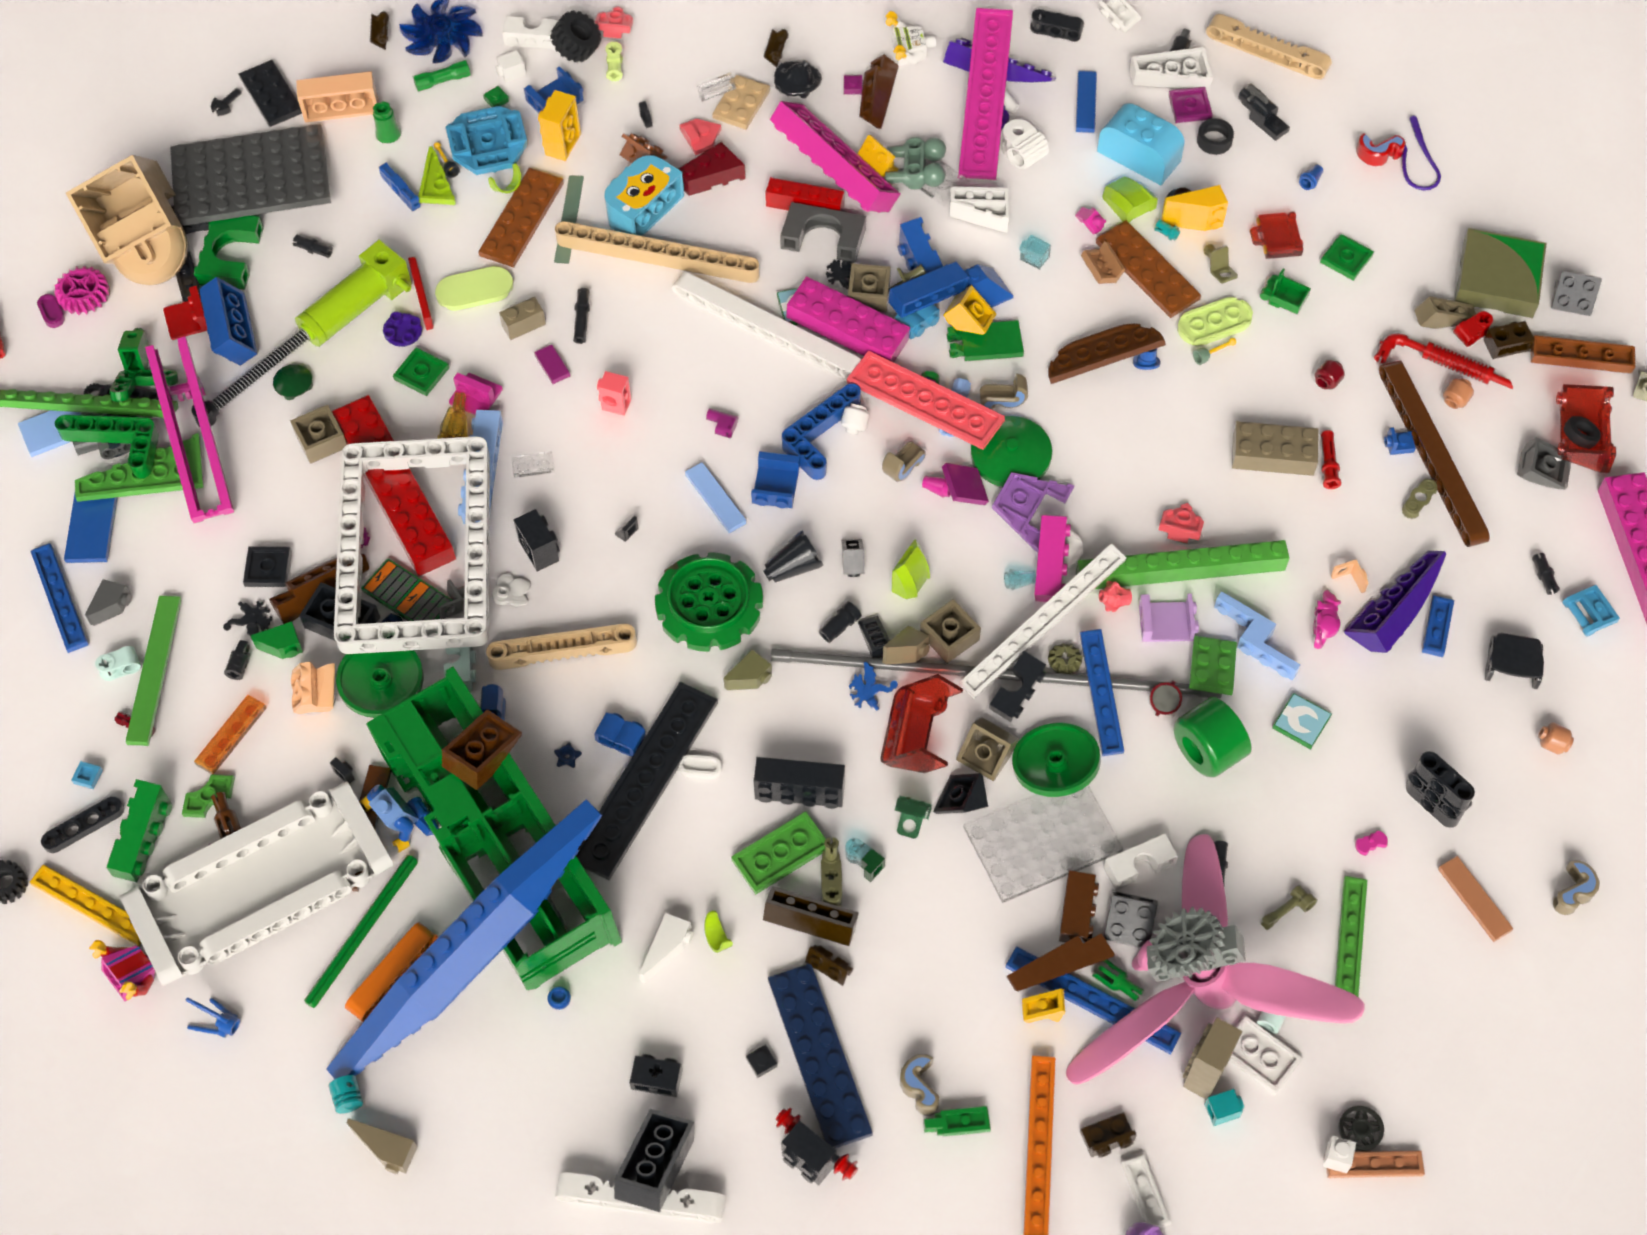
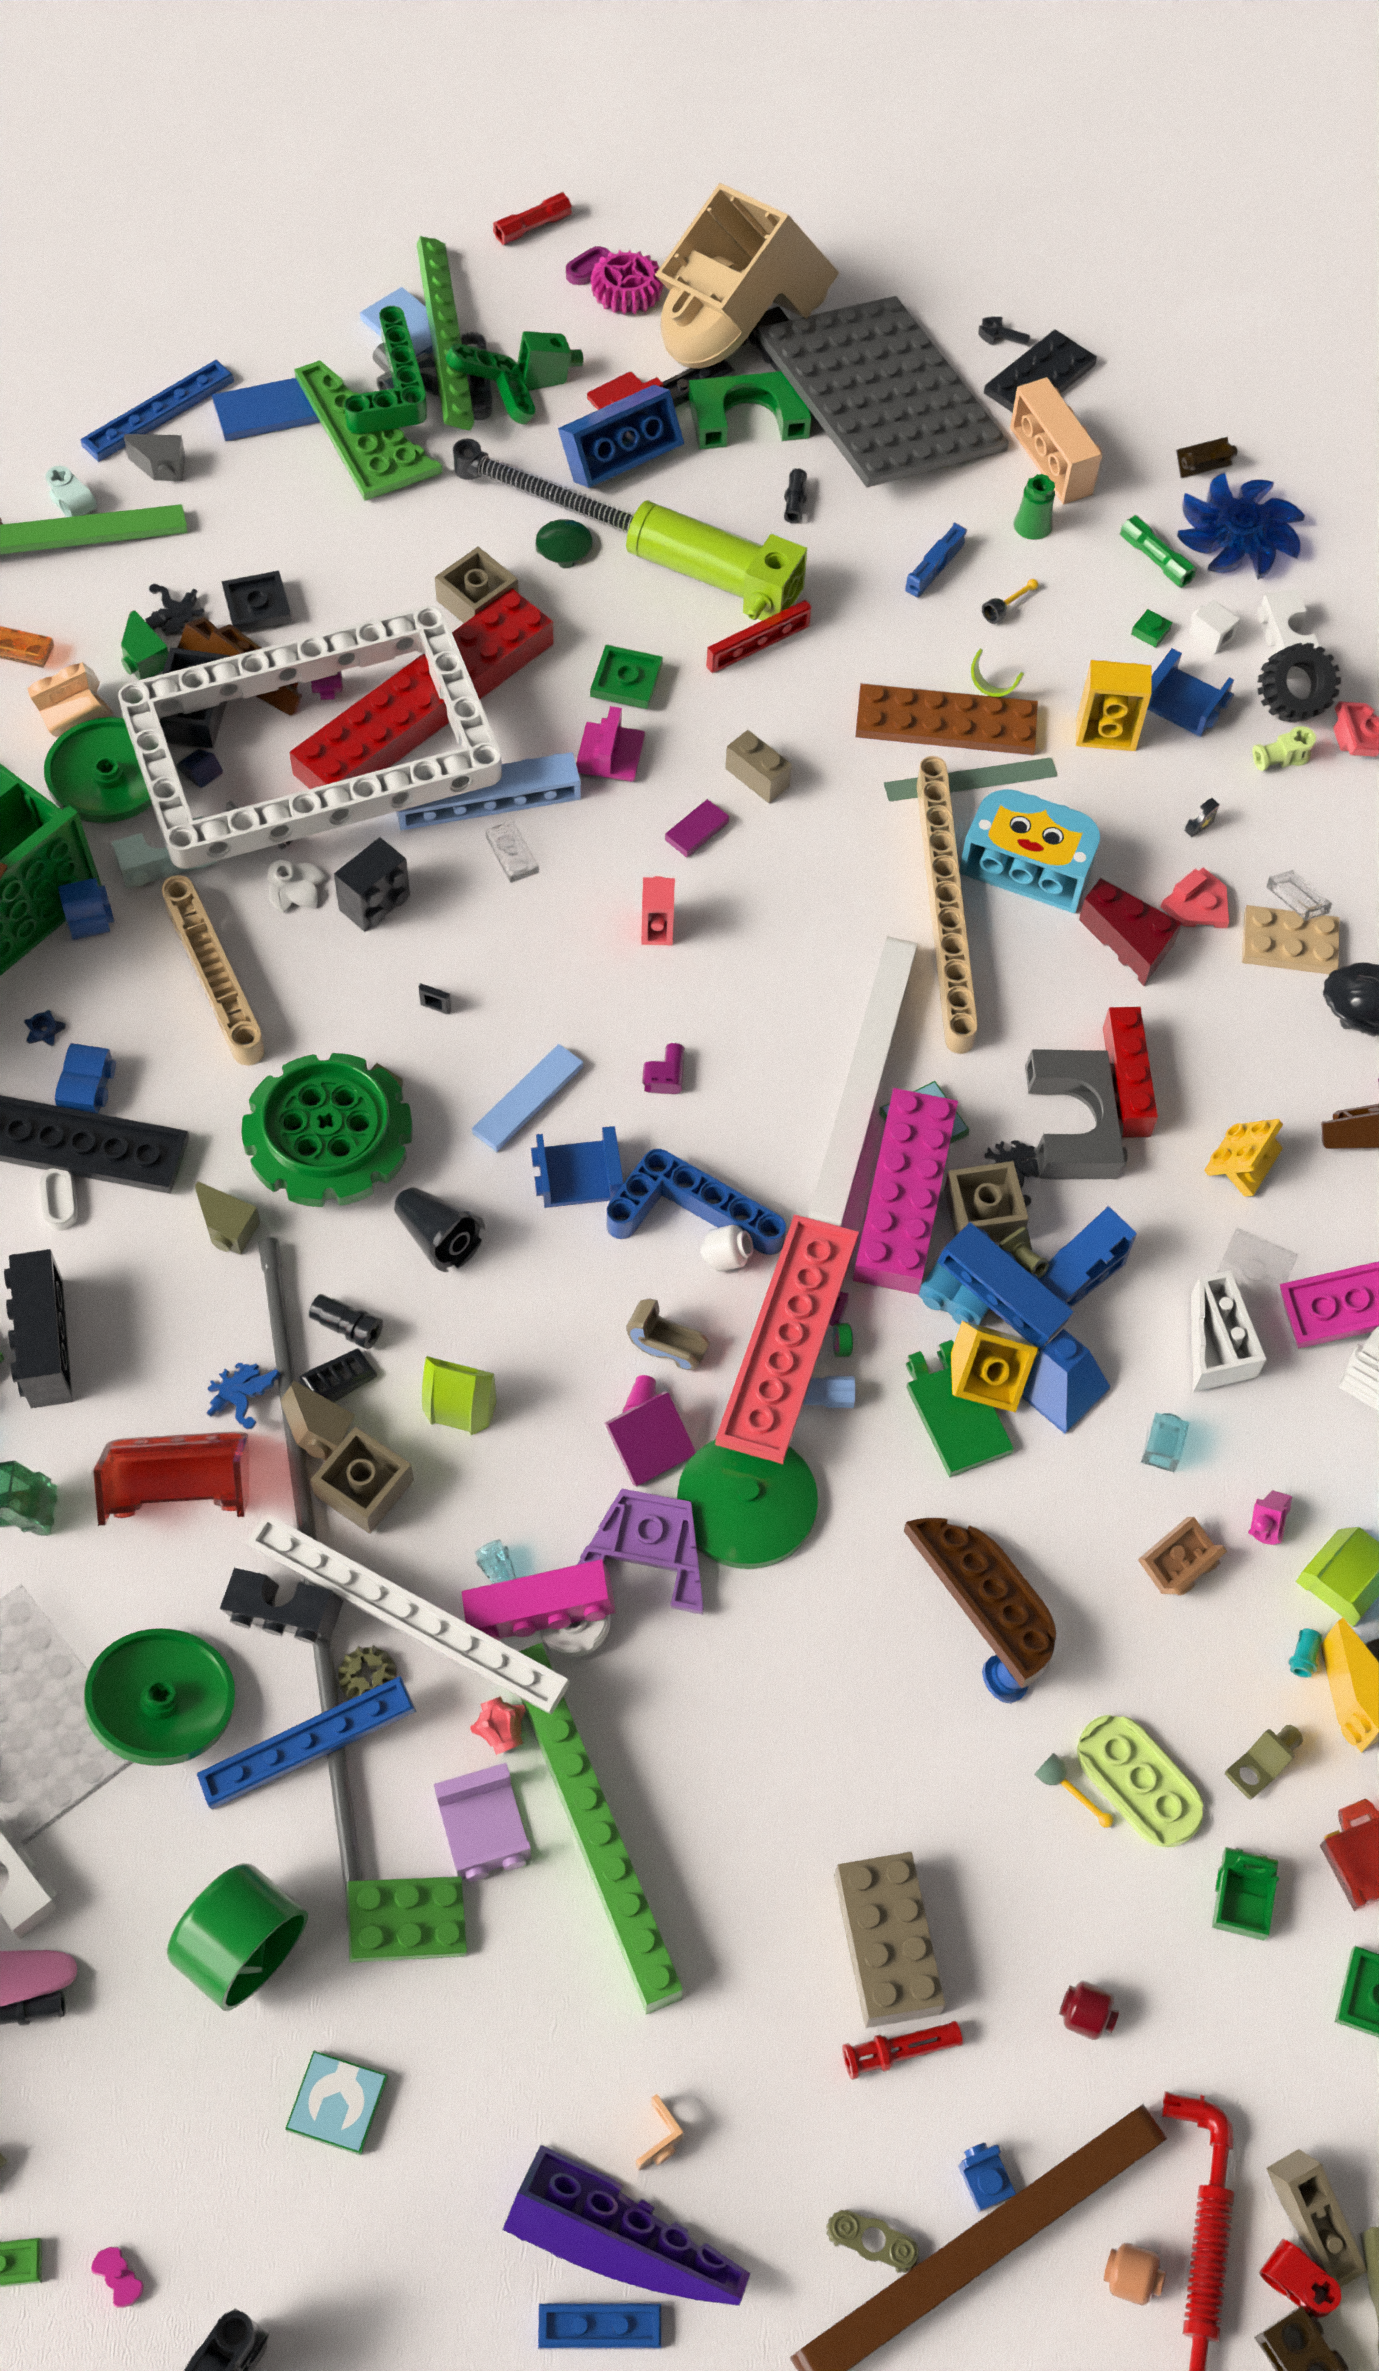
camera: 70 degrees right, 0 degrees up
(193, 390) = (472, 391): dark pink piece -> none
(238, 661) = (103, 614): black hinge -> none
(402, 329) = (690, 634): dark purple dish -> none
(404, 593) = (255, 763): tile -> none
(434, 185) = (958, 599): lime wing -> none
(455, 421) = (539, 737): clear yellow piece -> none
(474, 288) = (796, 698): yellowish green tile -> none
(487, 139) = (1052, 628): dark azure piece -> none
(582, 308) = (791, 839): black pin -> none
(638, 147) = (1128, 831): dark orange bracket -> none
(834, 157) = (1222, 1089): dark pink brick -> none
(853, 557) = (469, 1308): slope -> none
(915, 170) = (1257, 1214): sand green piece -> none
(962, 794) = (69, 1571): black slope -> none
(987, 748) = (167, 1588): dark tan slope -> none
(1005, 395) = (849, 1457): dark tan animal -> none
(1150, 269) = (1208, 1640): dark orange plate -> none
(1165, 698) = (316, 1849): pearl dark grey piece -> none
(1181, 524) = (683, 1807): coral plate -> none
(1256, 636) = (482, 1985): light blue bracket -> none
(1327, 620) = (547, 2109): dark pink animal -> none

